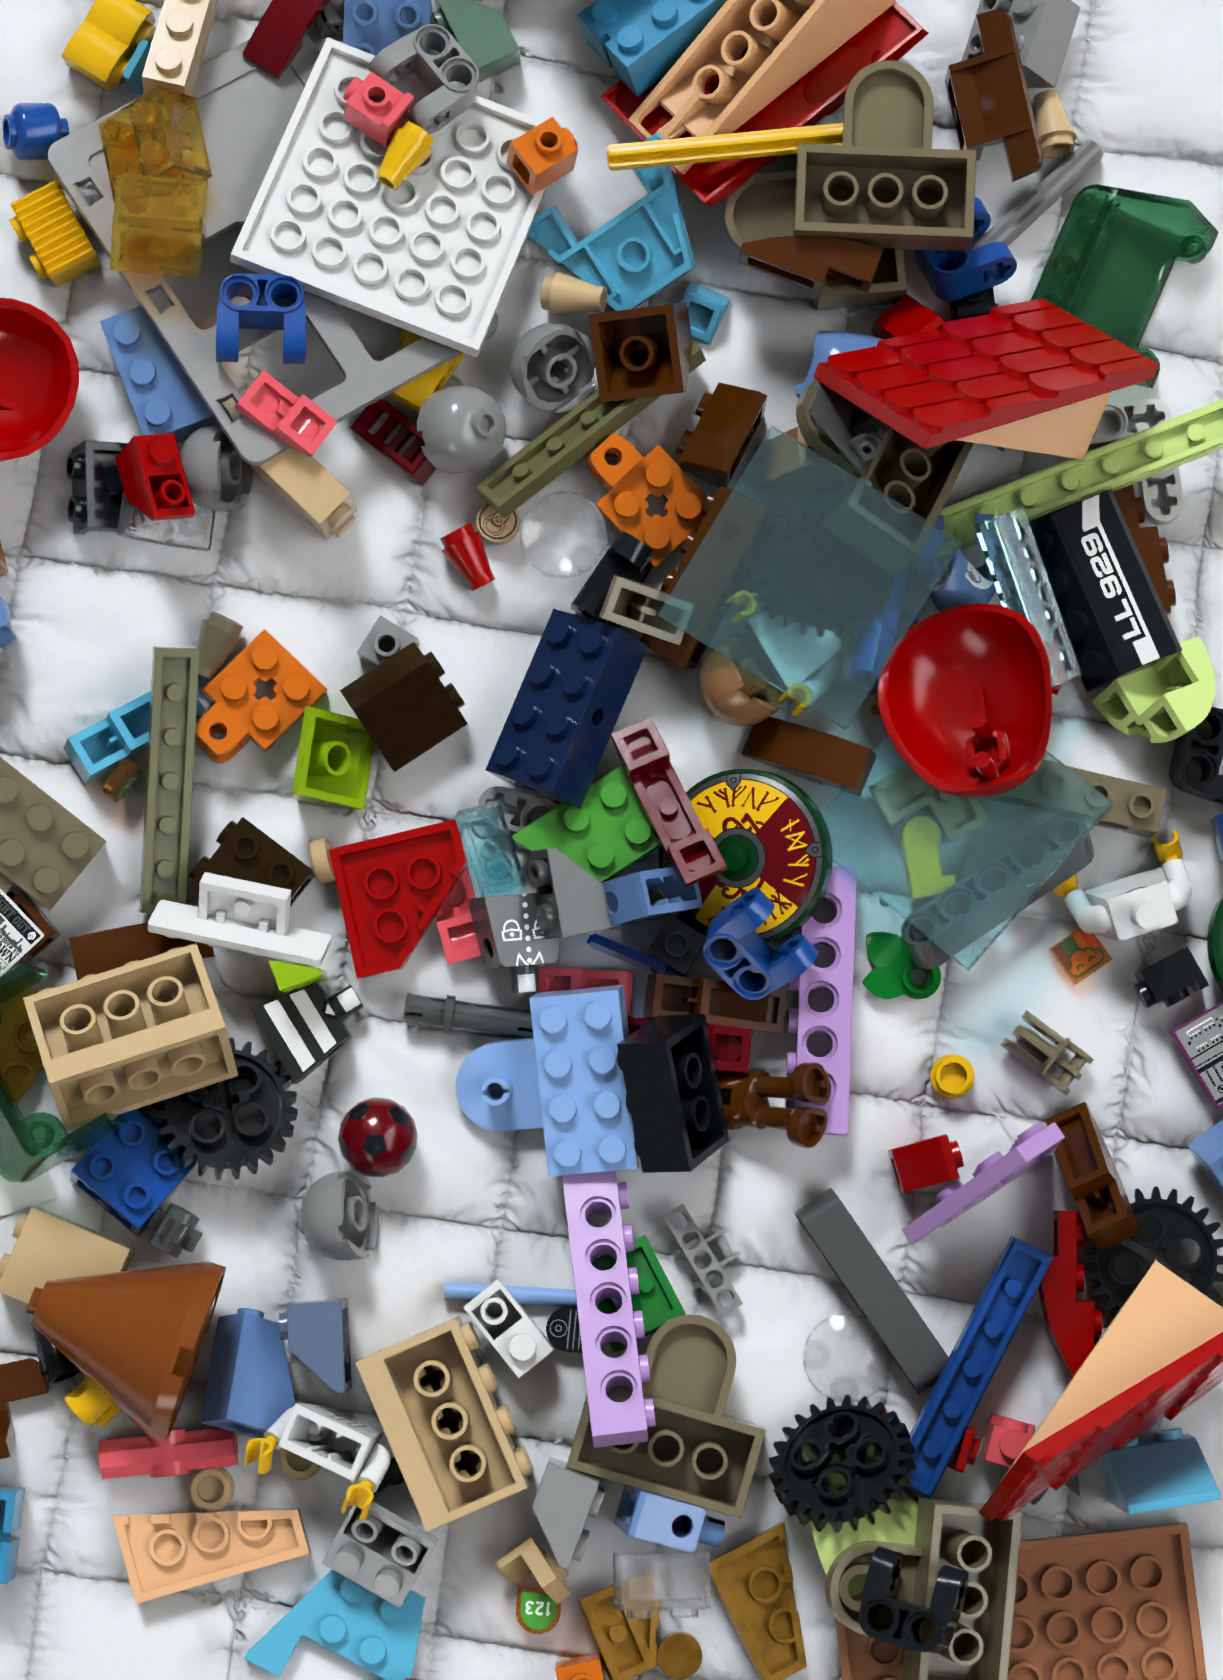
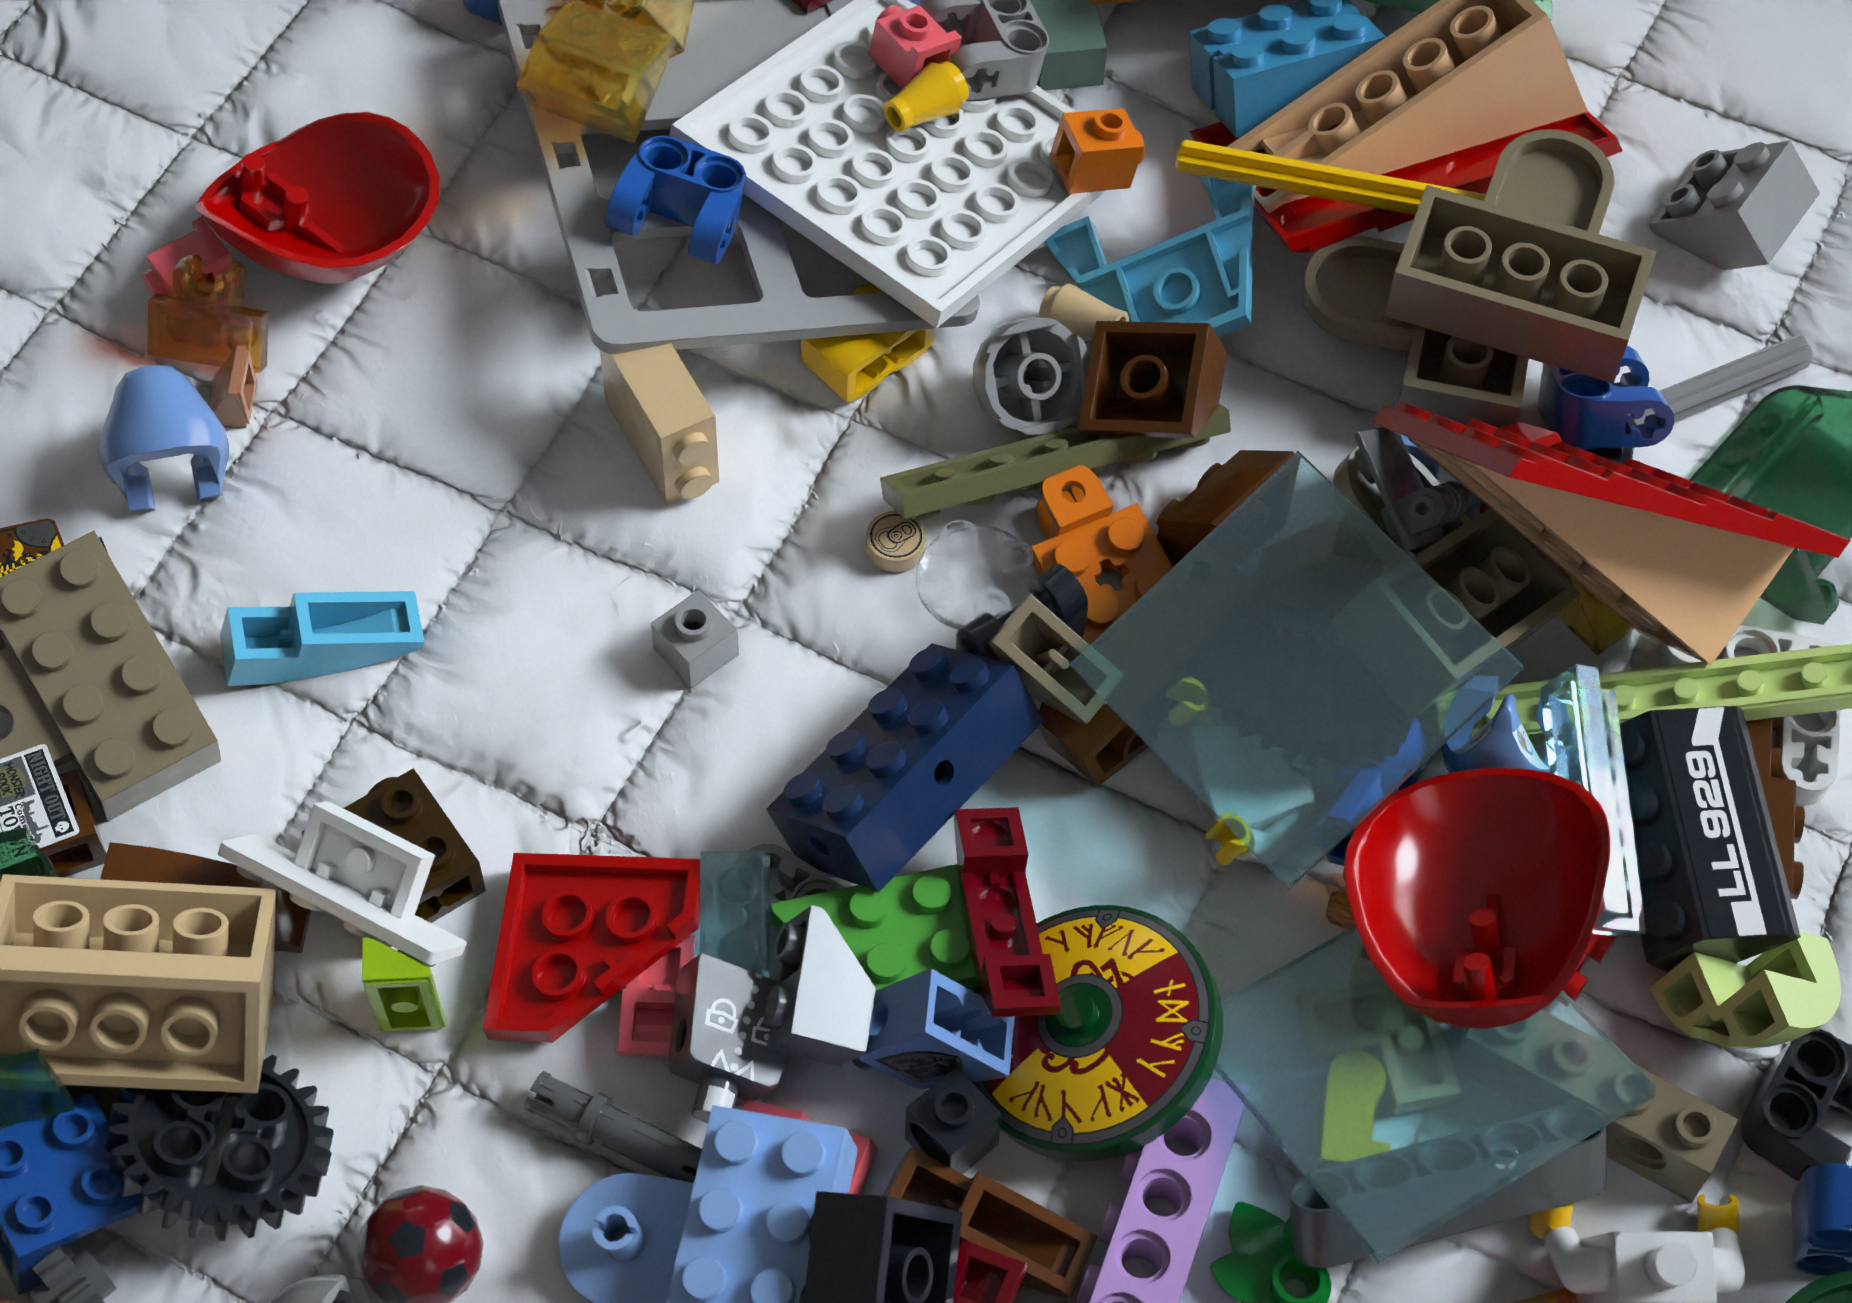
camera: 15 degrees right, 25 degrees down
(55, 234) = (474, 90): yellow brick -> none
(95, 486) = (411, 358): black bracket -> none
(123, 778) = (280, 688): clear orange tile -> none
(154, 379) = (526, 268): medium blue wedge -> none
(155, 477) = (477, 339): red slope -> none
(169, 776) = (341, 684): olive plate -> none
(182, 533) = (478, 424): clear slope -> none
(215, 470) = (556, 371): light grey cylinder -> none
(216, 643) = (473, 568): dark tan cone -> none
(243, 716) = (469, 662): orange plate -> none
(285, 415) = (659, 298): coral slope -> none
(307, 1026) = (385, 1073): torso -> none
(321, 860) = (496, 864): tan tile -> none
(332, 760) = (563, 744): lime slope -> none
(406, 705) = (689, 698): dark brown brick -> none
(413, 459) = (824, 444): dark red slope -> none
(461, 429) = (887, 411): light grey cylinder -> none
(468, 555) = (841, 560): red cone -> none
(627, 954) = (876, 1107): clear blue piece -> none
(704, 310) = (1246, 388): medium azure slope -> none
(734, 694) = (1148, 814): medium nougat cylinder -> none
(750, 951) = (1058, 1144): blue piece -> none
(810, 754) = (1235, 926): reddish brown slope -> none
(813, 259) = (1407, 332): reddish brown slope -> none
(993, 99) = (1693, 243): reddish brown plate -> none
(1053, 125) = (1754, 313): tan cone -> none

